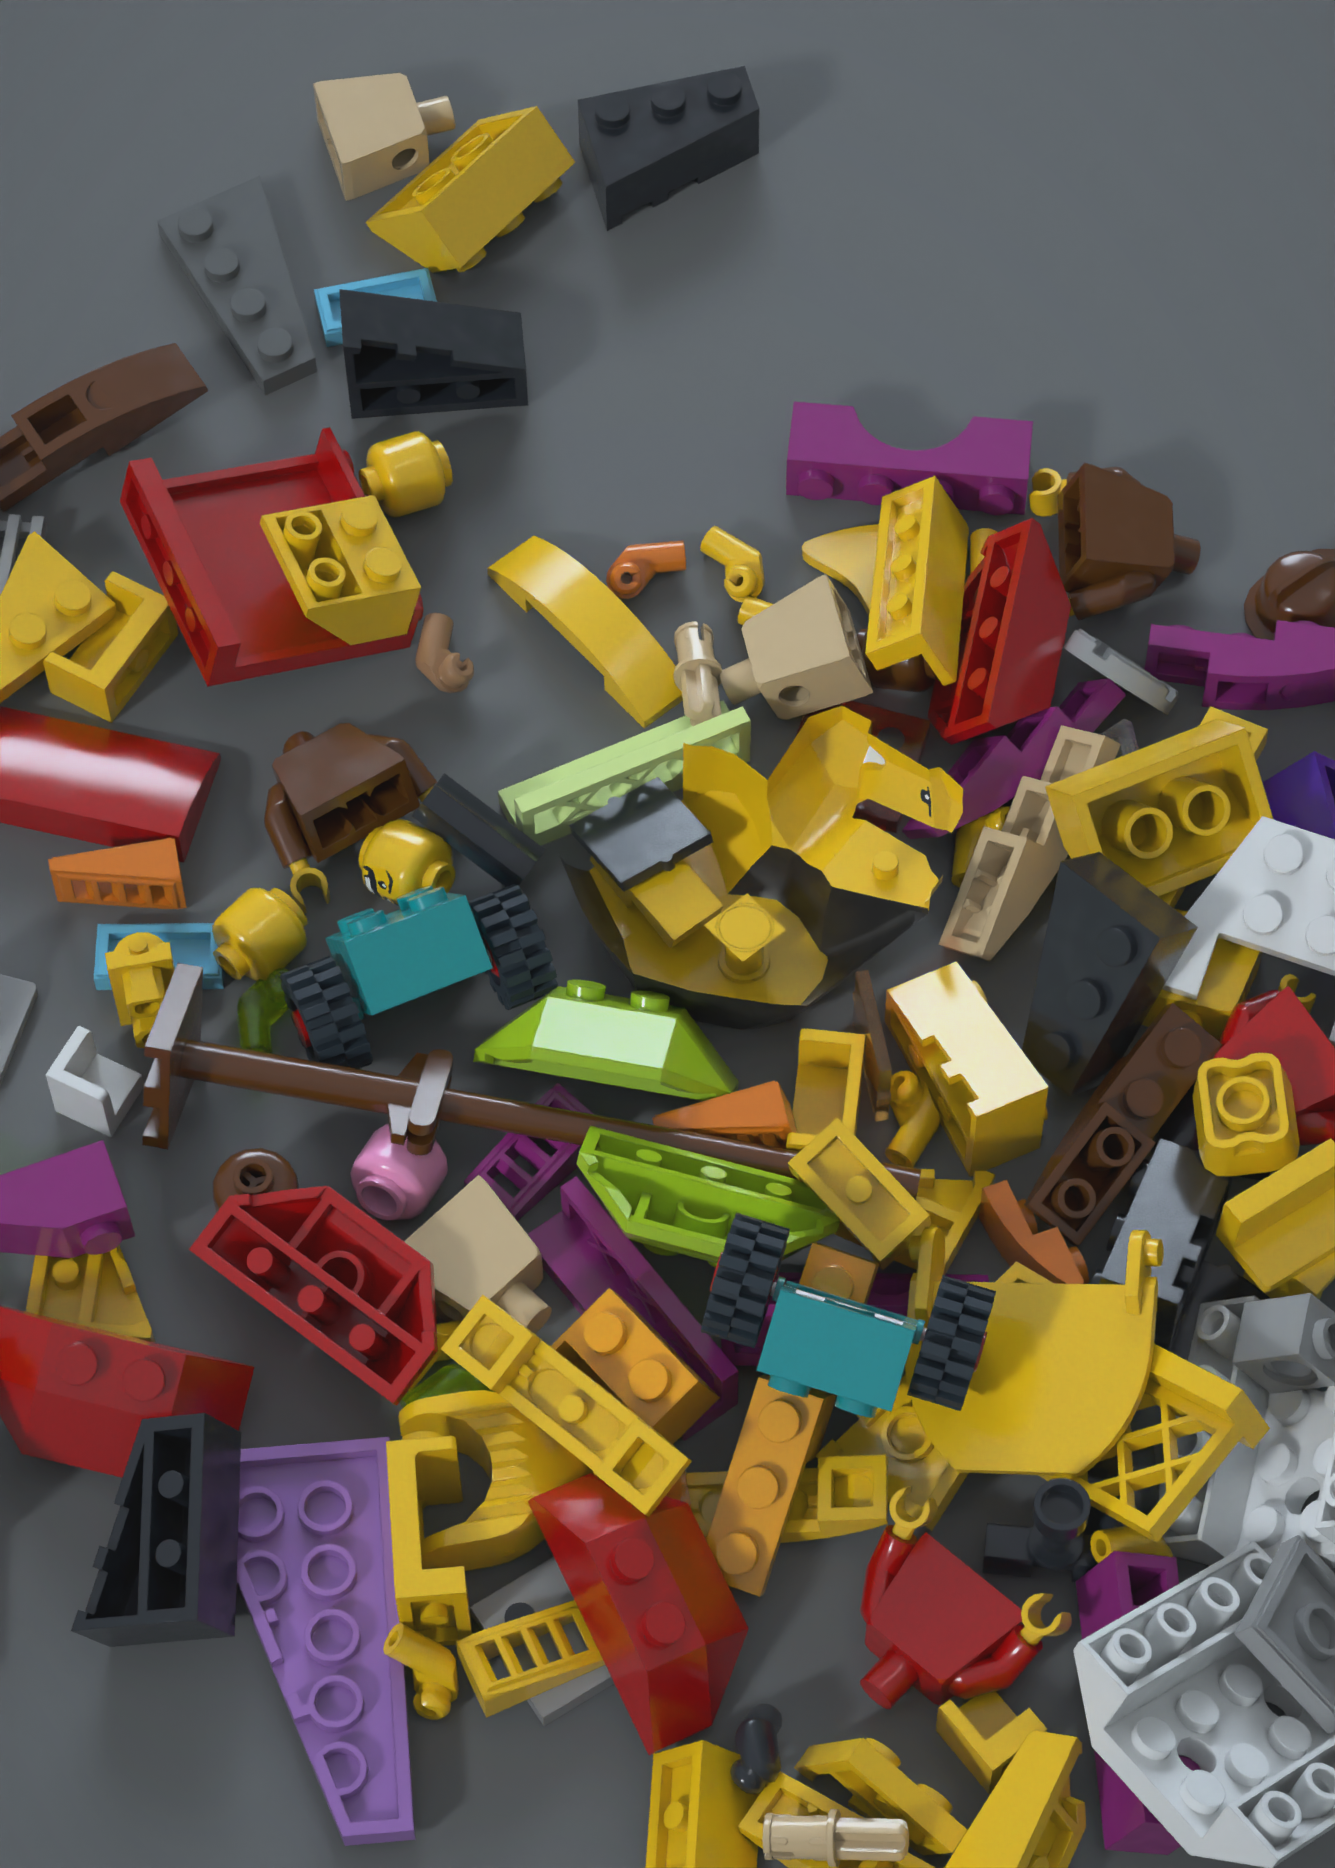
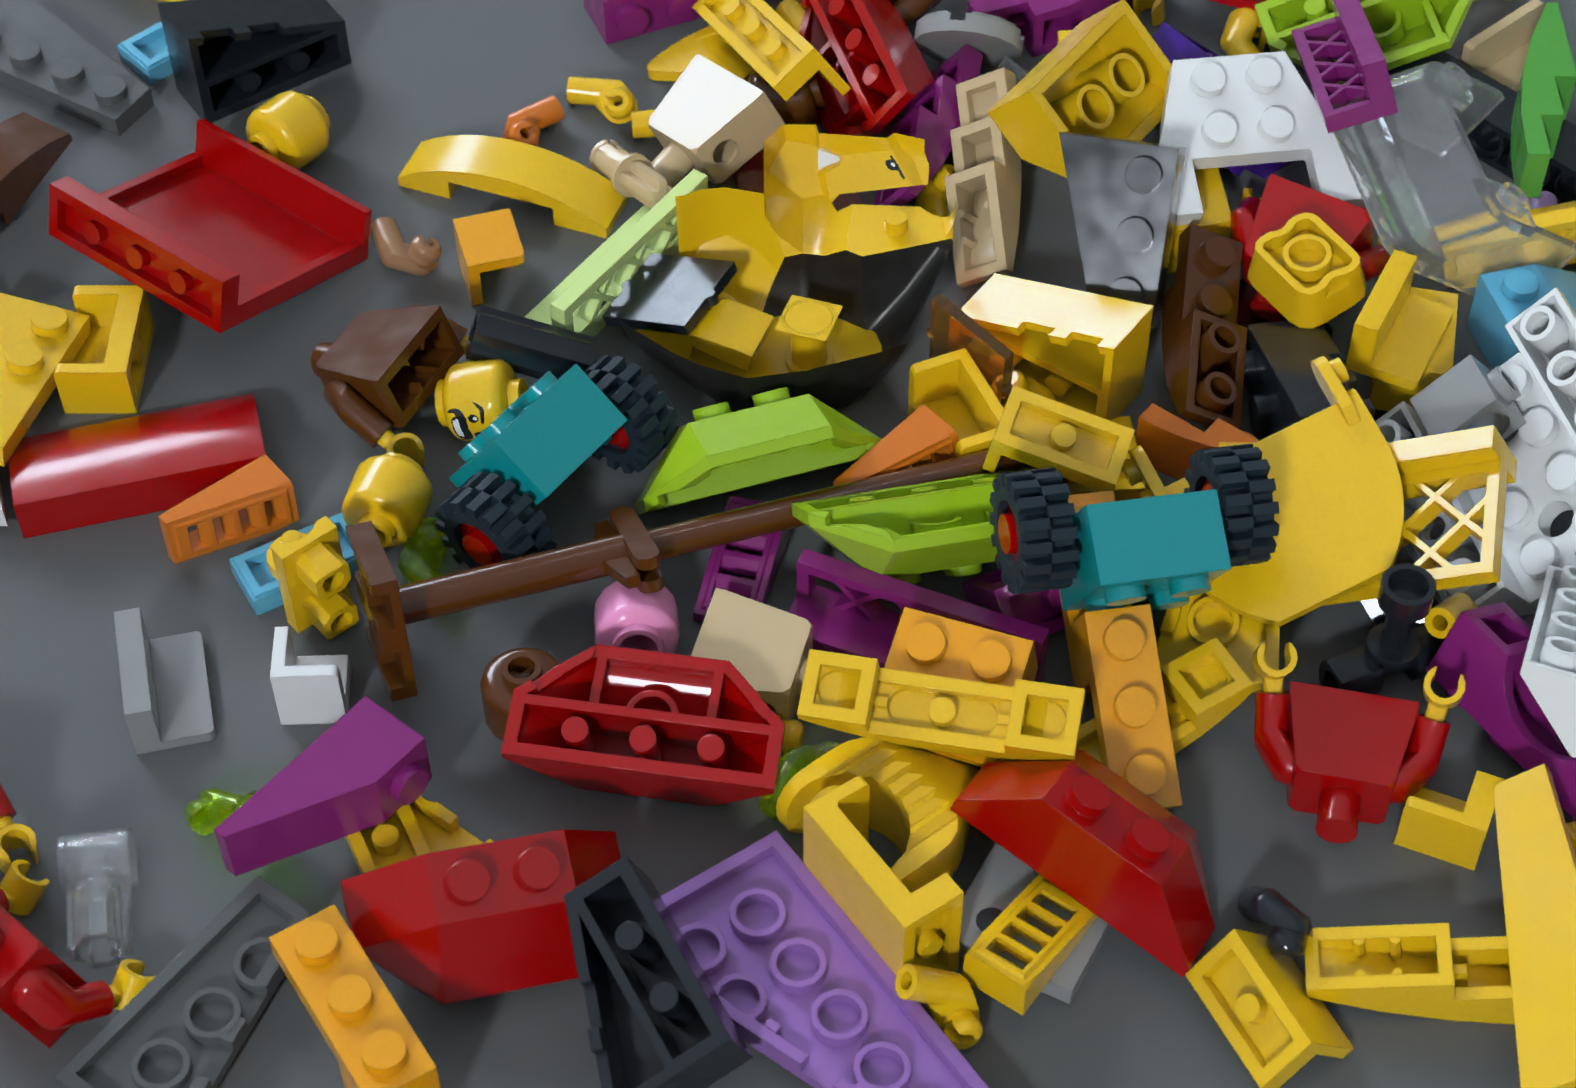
camera: 30 degrees left, 10 degrees down
(345, 568) = (293, 197): yellow slope -> none
(509, 698) = (484, 245): none -> light orange panel
(834, 1838) = (1406, 947): tan axle -> none
(886, 1792) = (1406, 889): yellow wing -> none

